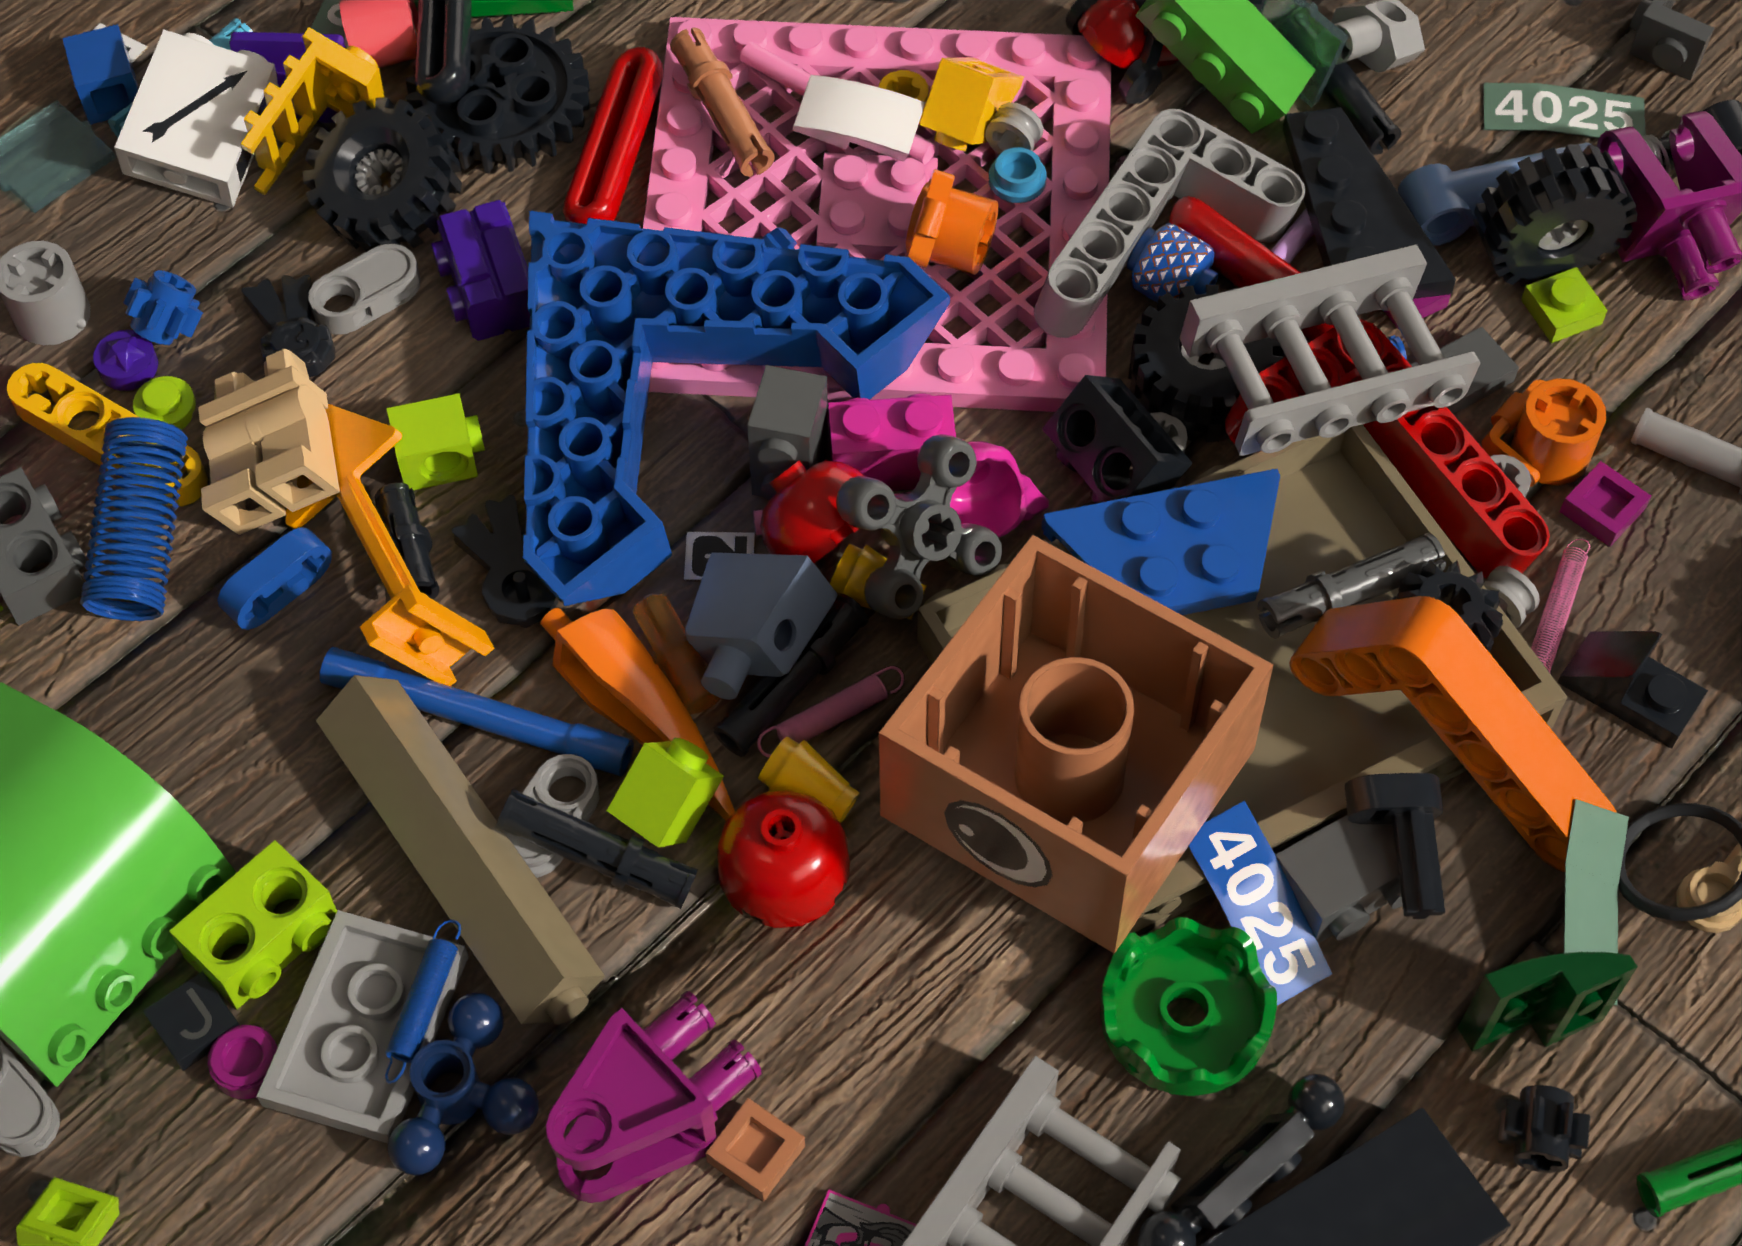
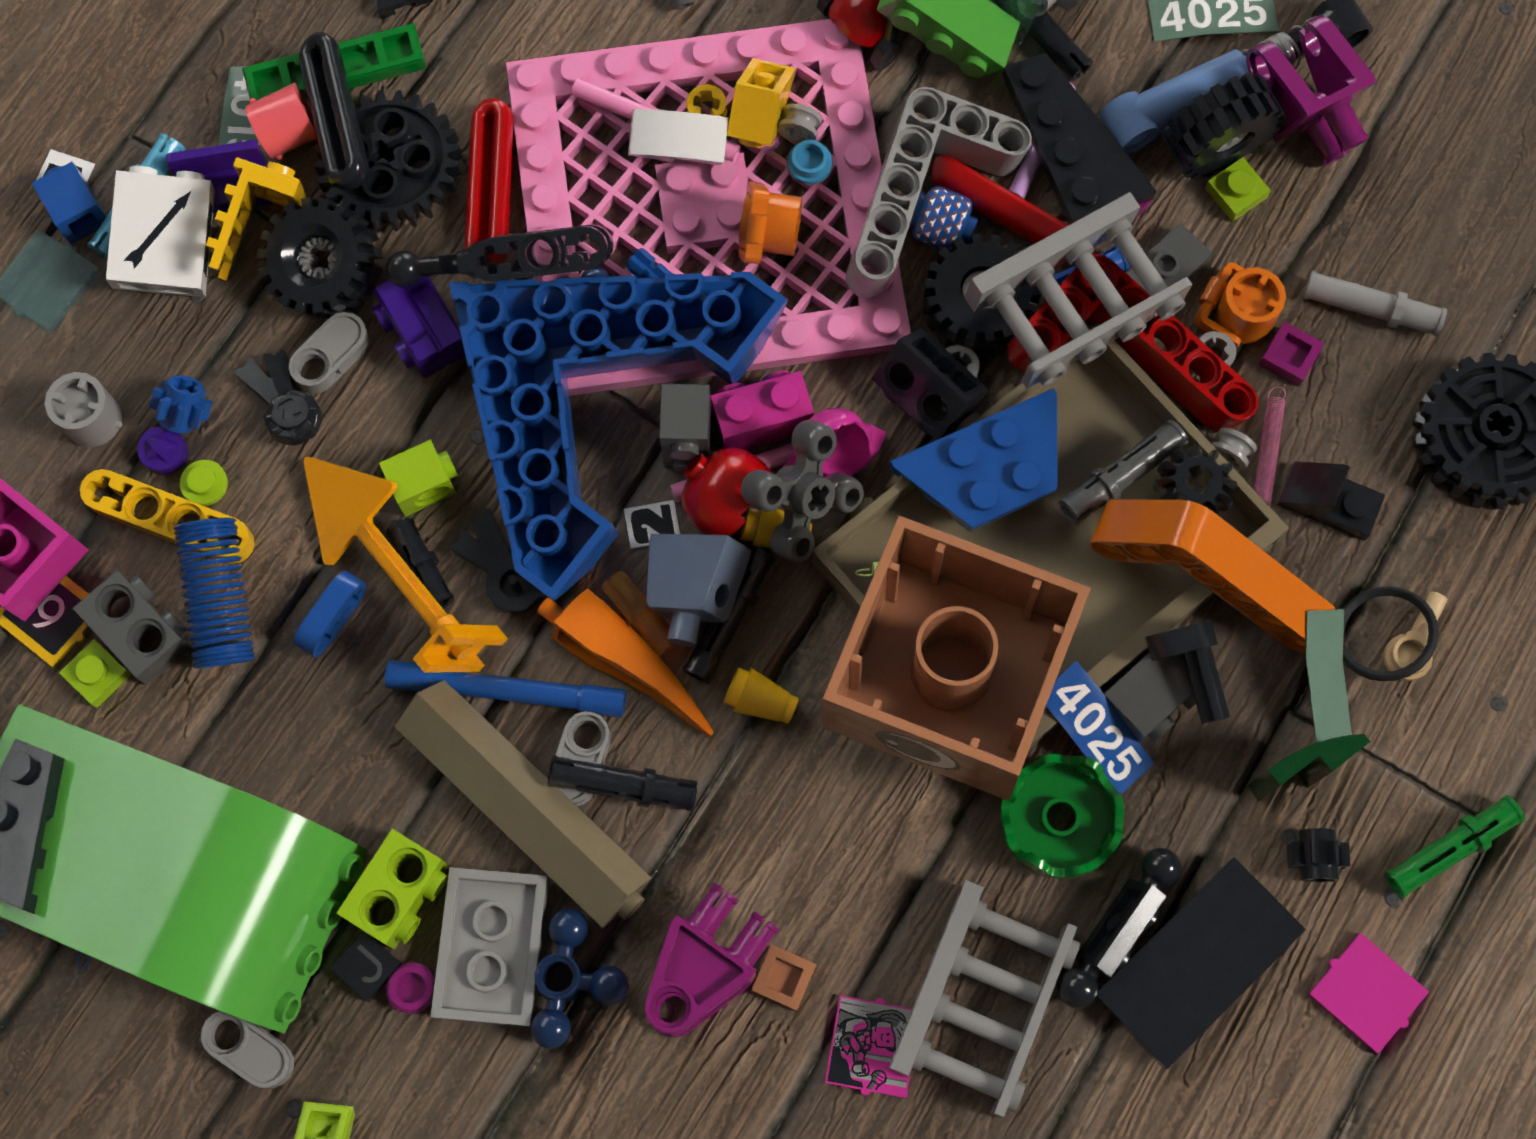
camera: 10 degrees left, 15 degrees up
(262, 440) = (295, 507): tan hips -> none
(421, 1000) = (528, 925): blue piece -> none
(612, 199) = (406, 269): none -> black piece
(666, 791) = (661, 730): lime brick -> none
(713, 87) = (556, 126): nougat pin -> none
(783, 858) = (750, 780): red cylinder -> none
(833, 709) = (763, 635): bright pink piece -> none

